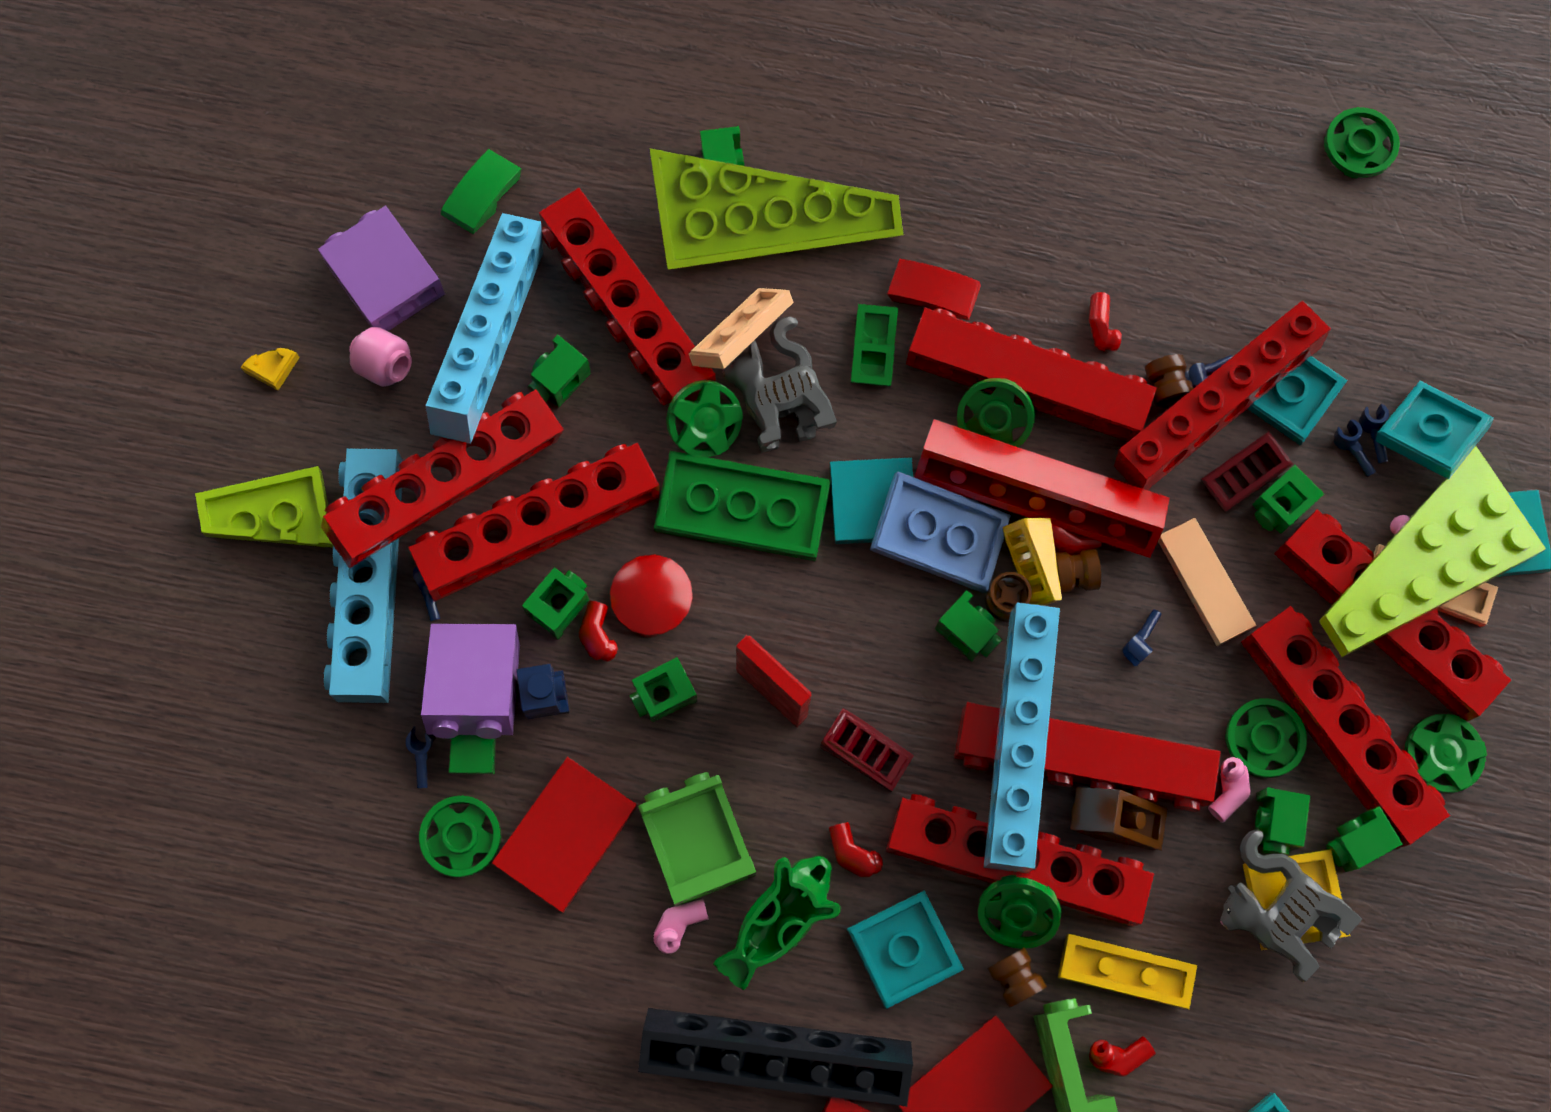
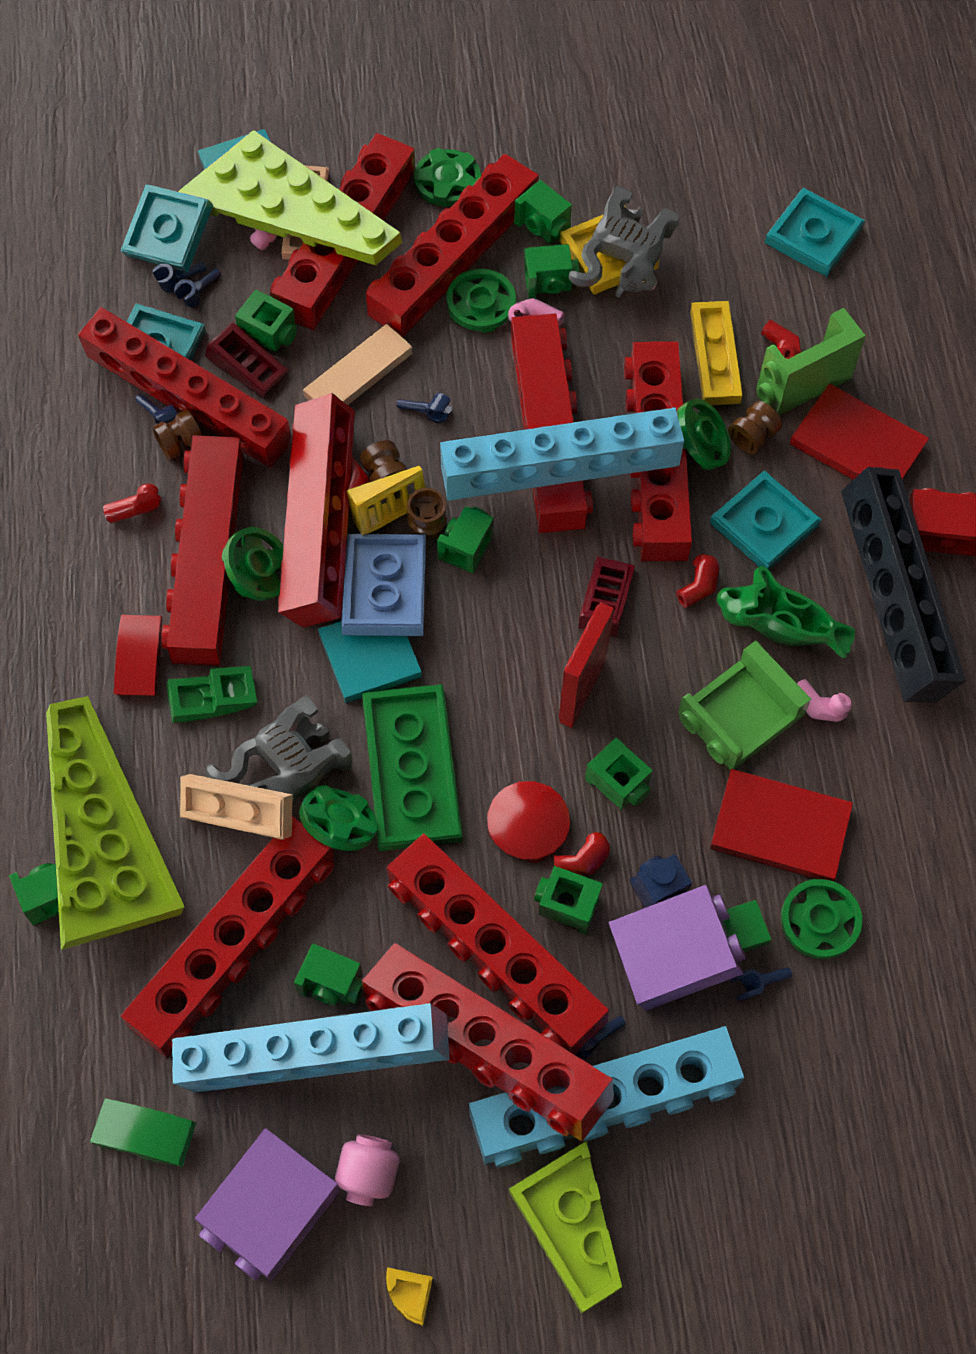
camera: 105 degrees left, 10 degrees down
(1118, 817) = (594, 386): reddish brown slope -> none

